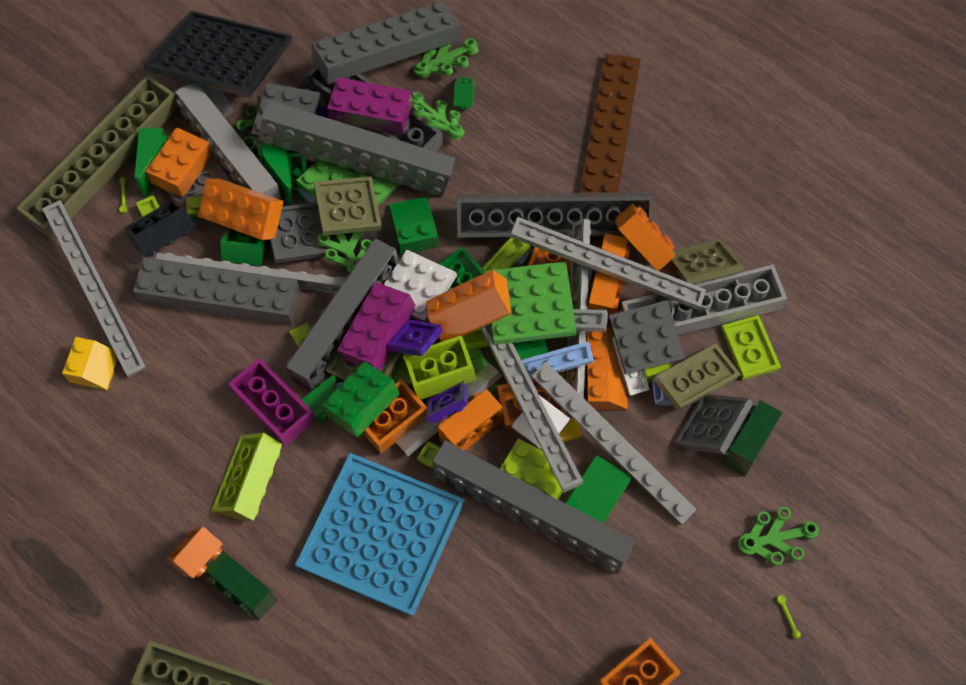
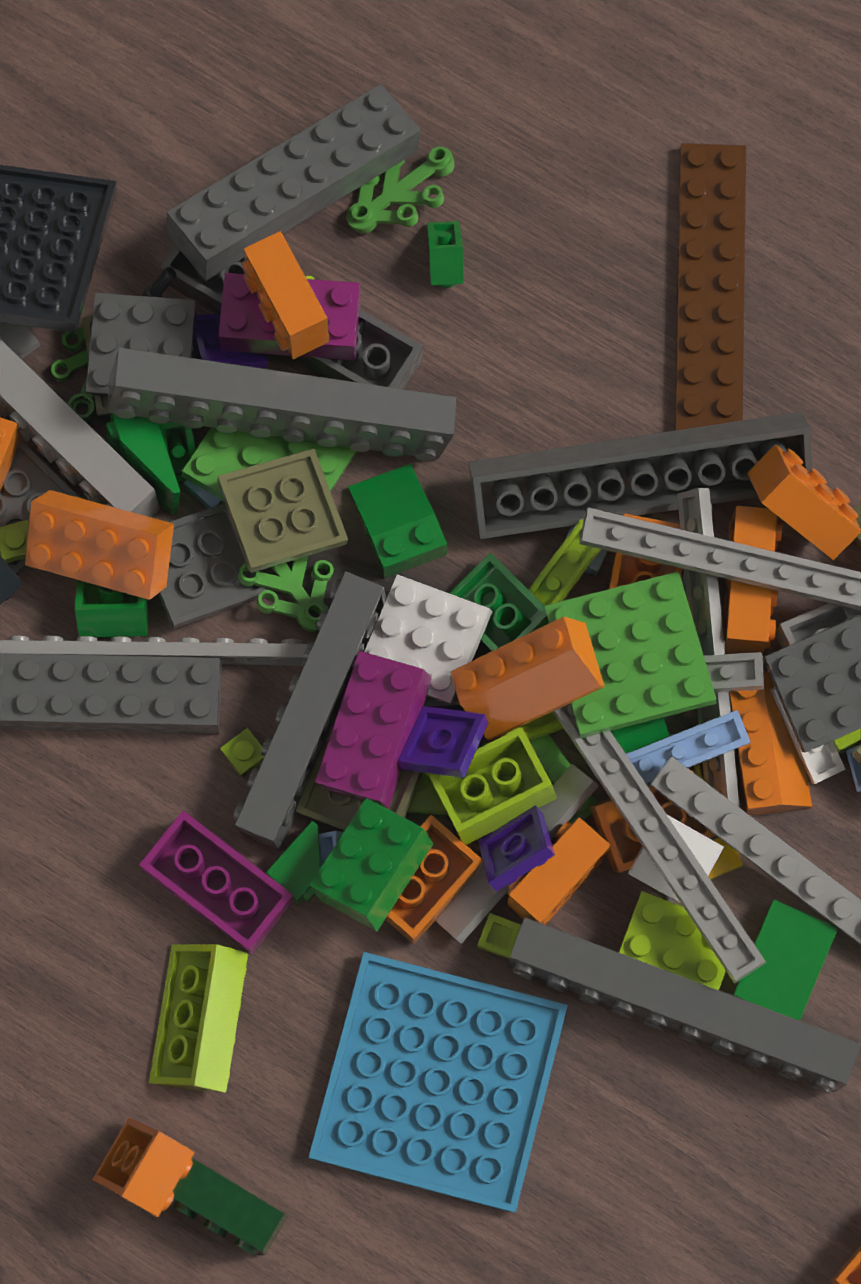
camera: 10 degrees left, 10 degrees up
(366, 86) = (285, 295): none -> orange brick
(433, 118) = (437, 332): bright green plant -> none

